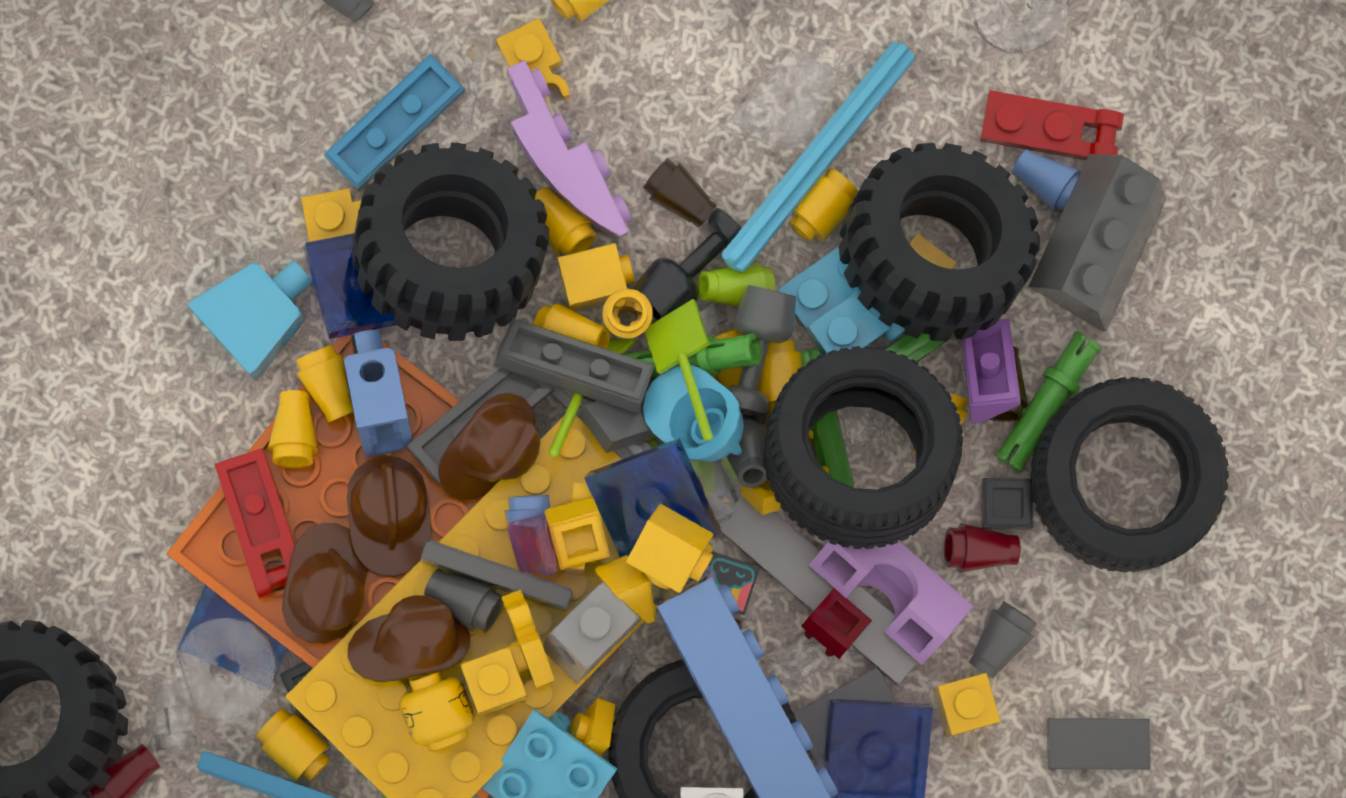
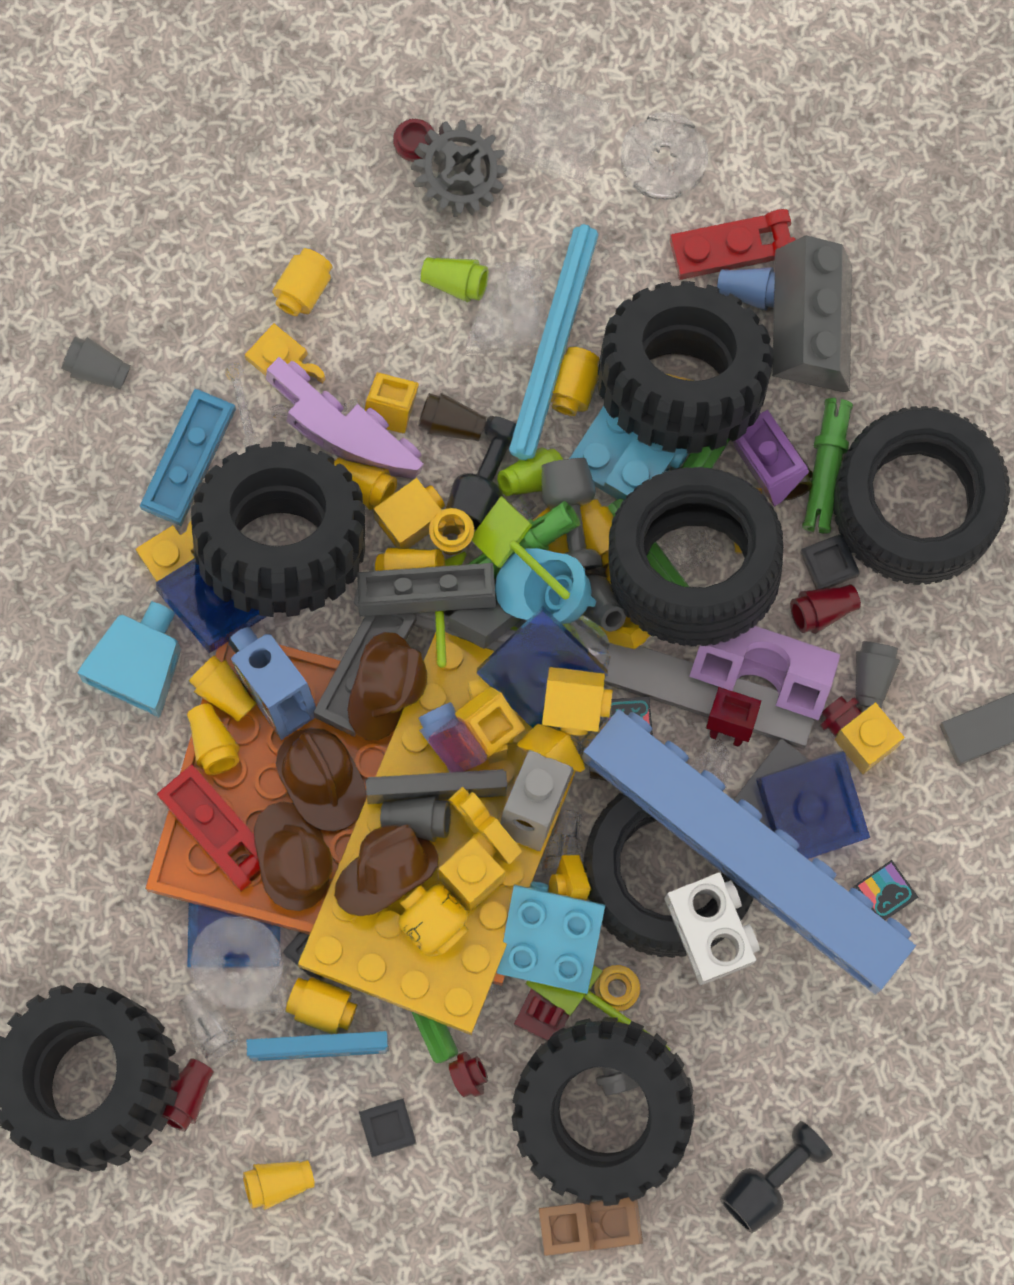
camera: 20 degrees left, 5 degrees down
(627, 148) = (393, 400): none -> yellow slope
(748, 46) = (457, 277): none -> lime cone
(947, 668) = (839, 714): none -> dark red plate

